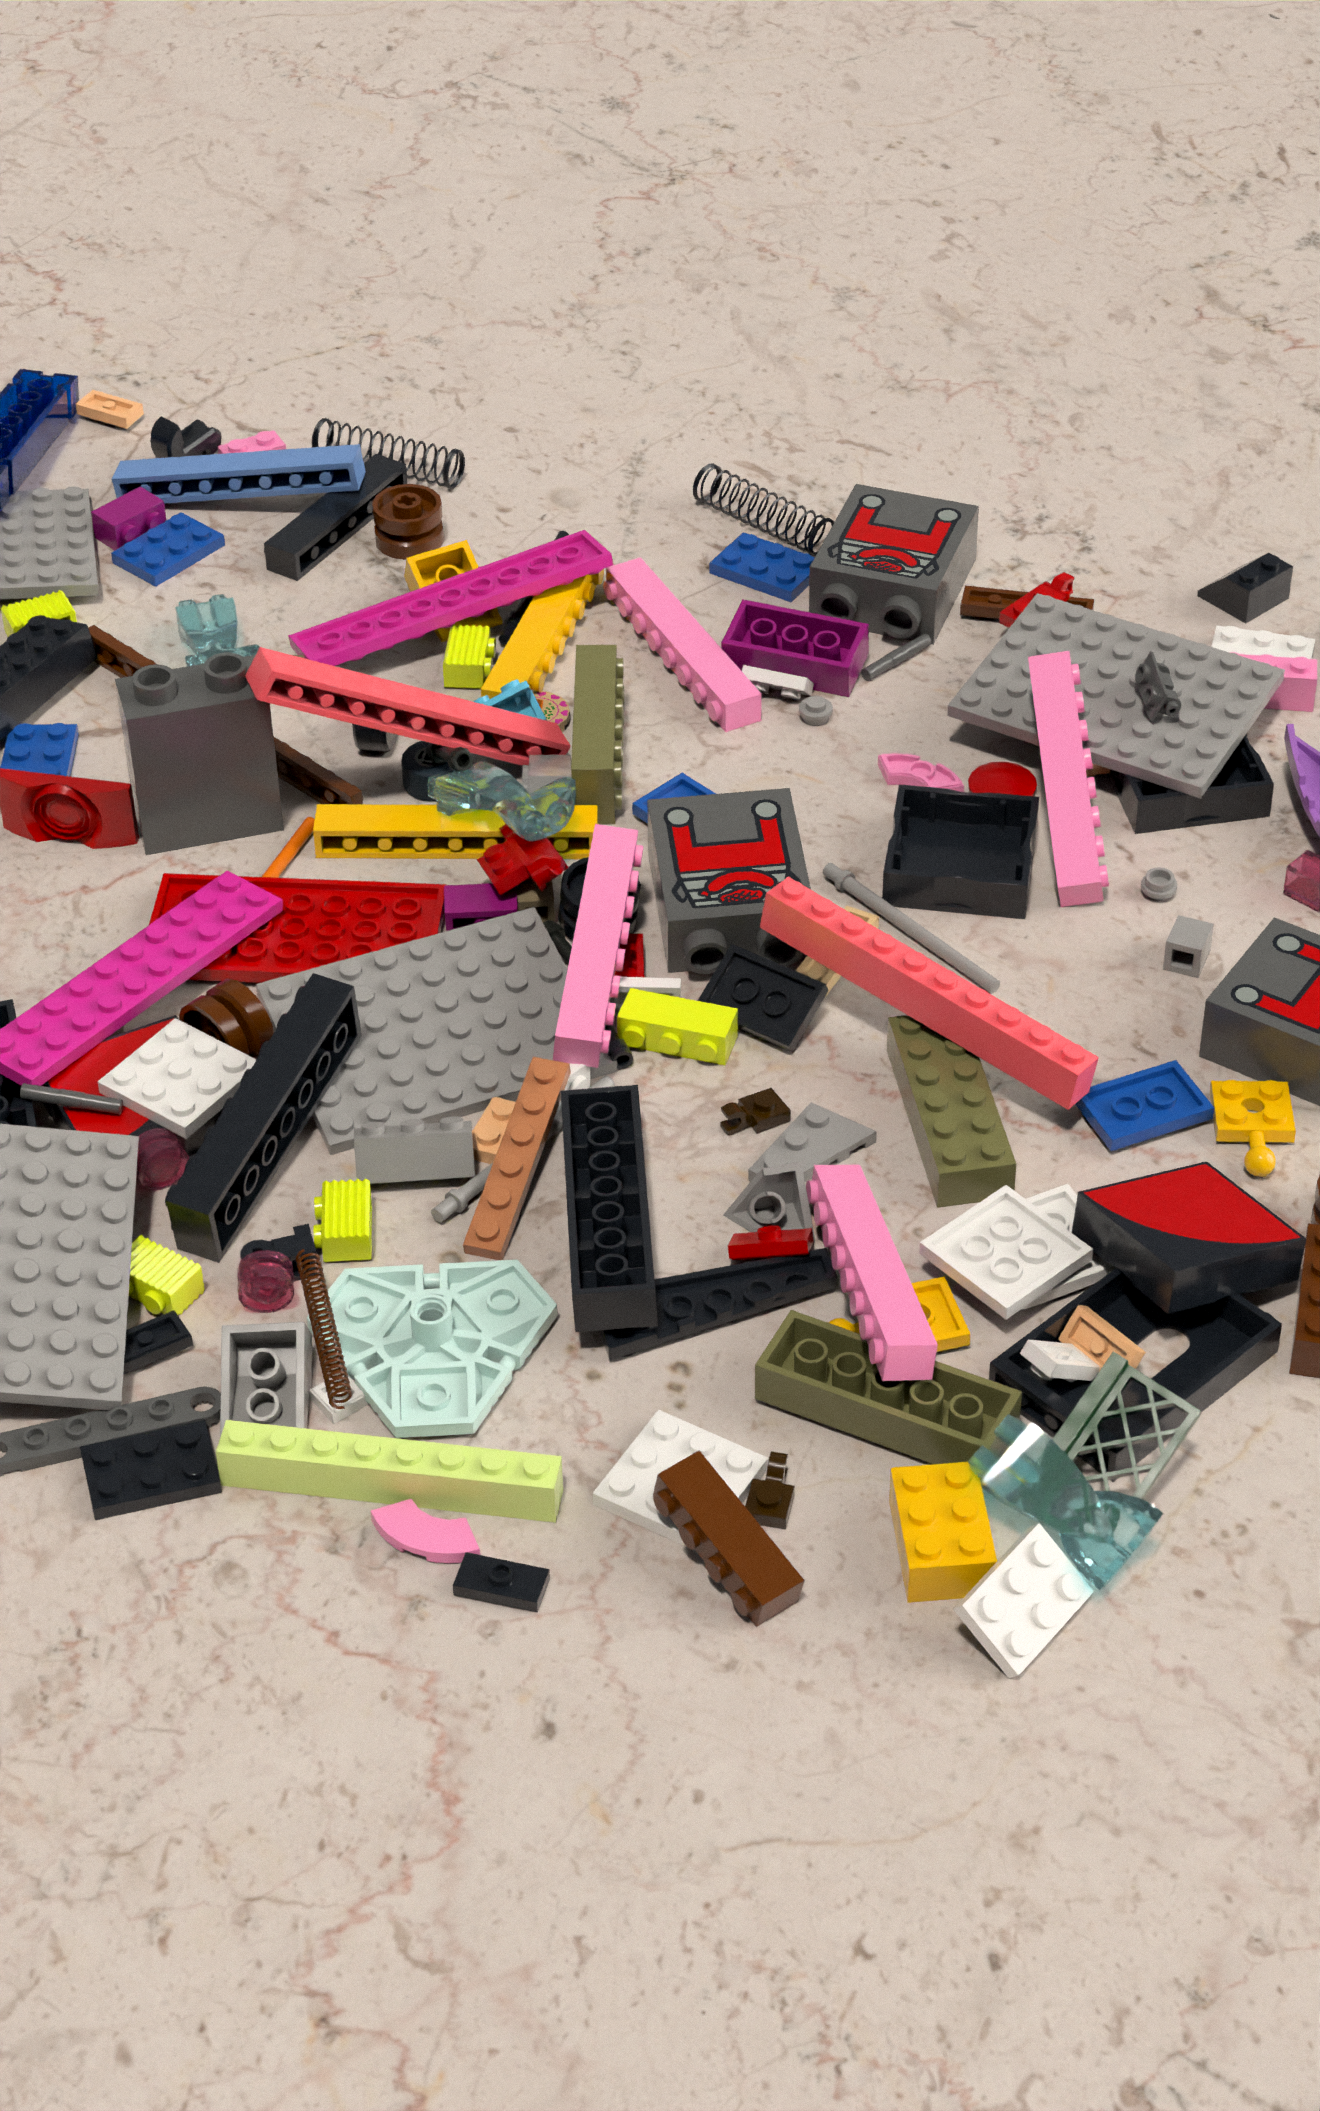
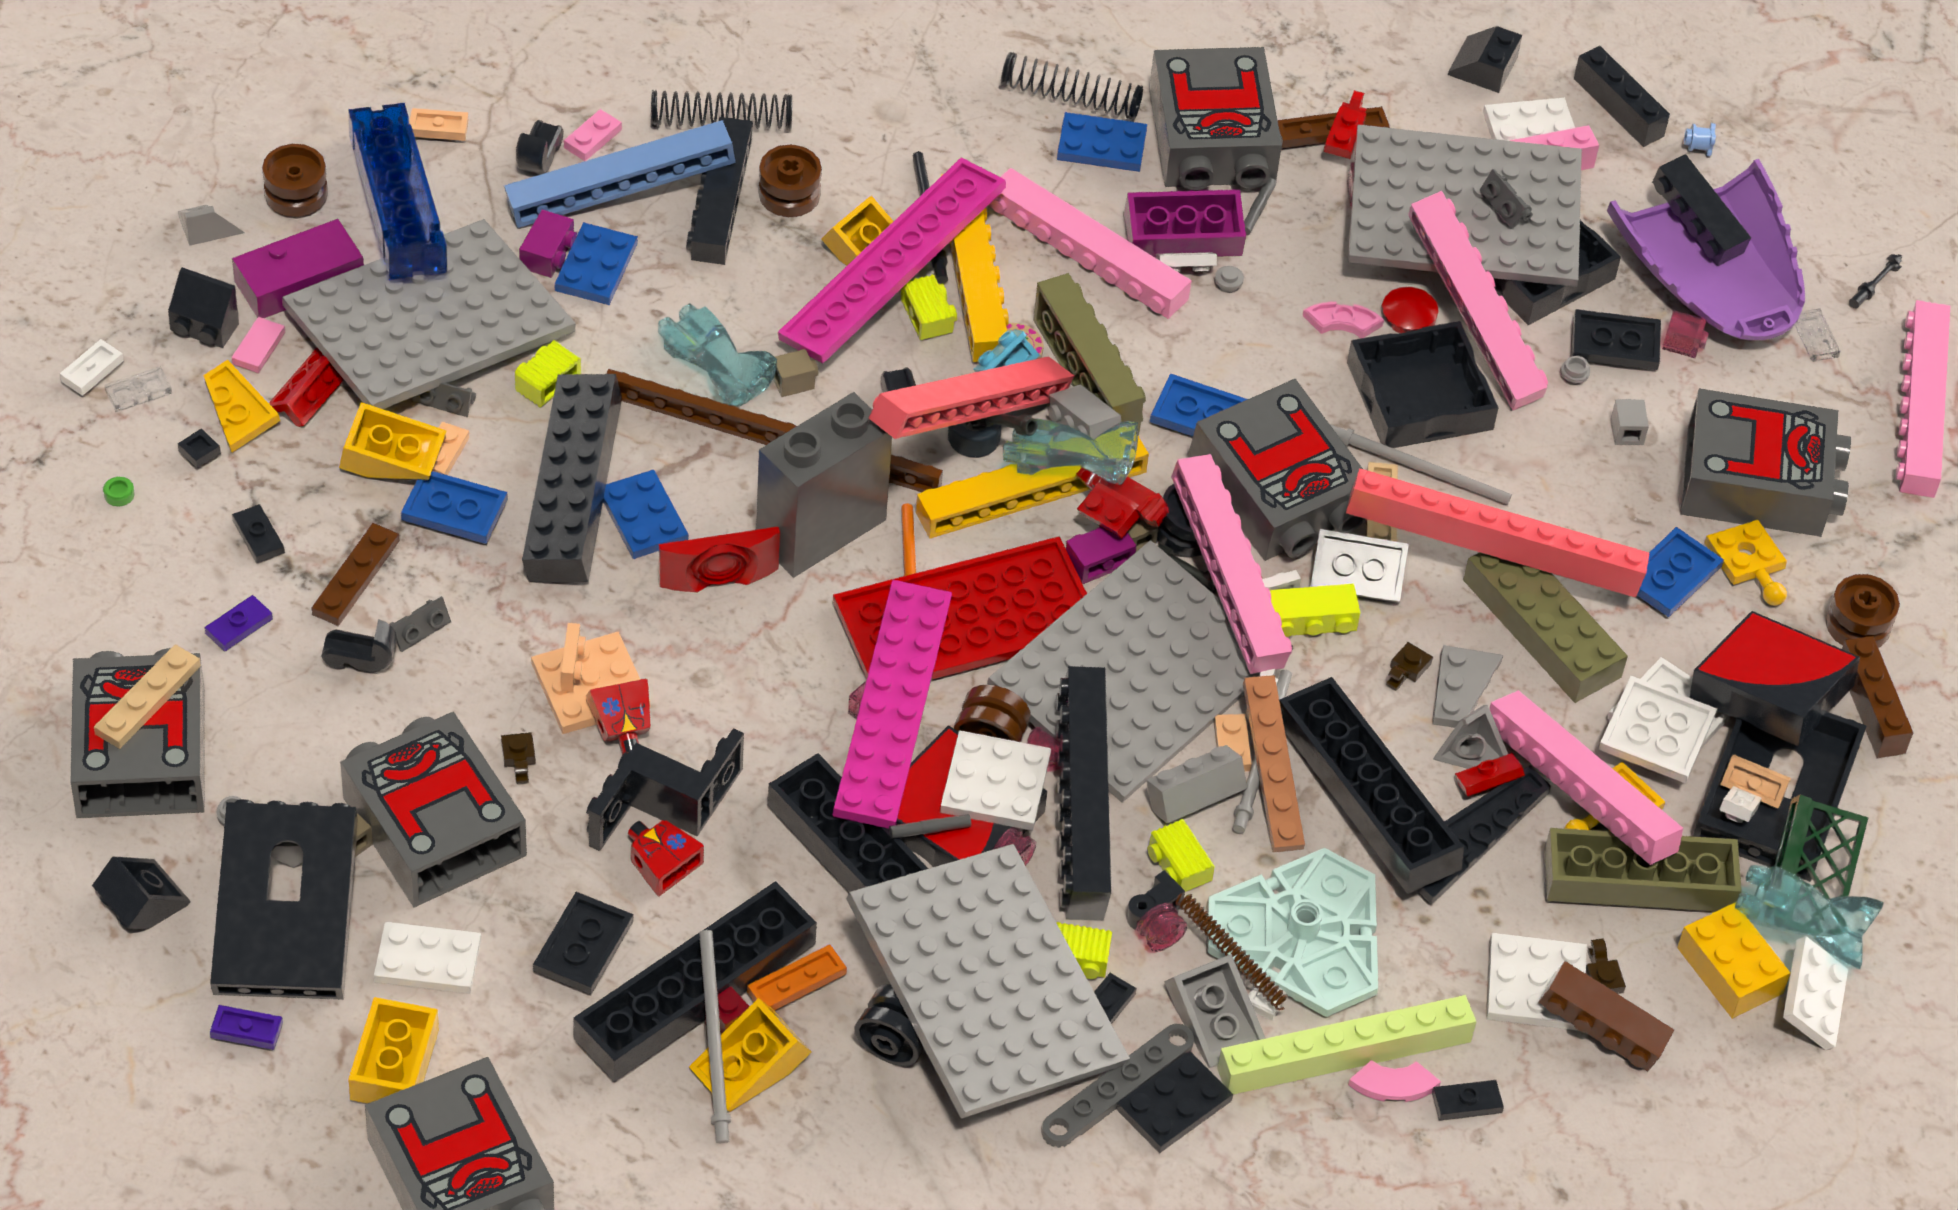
camera: 30 degrees left, 10 degrees up
(1227, 867) = (1617, 339): none -> black plate

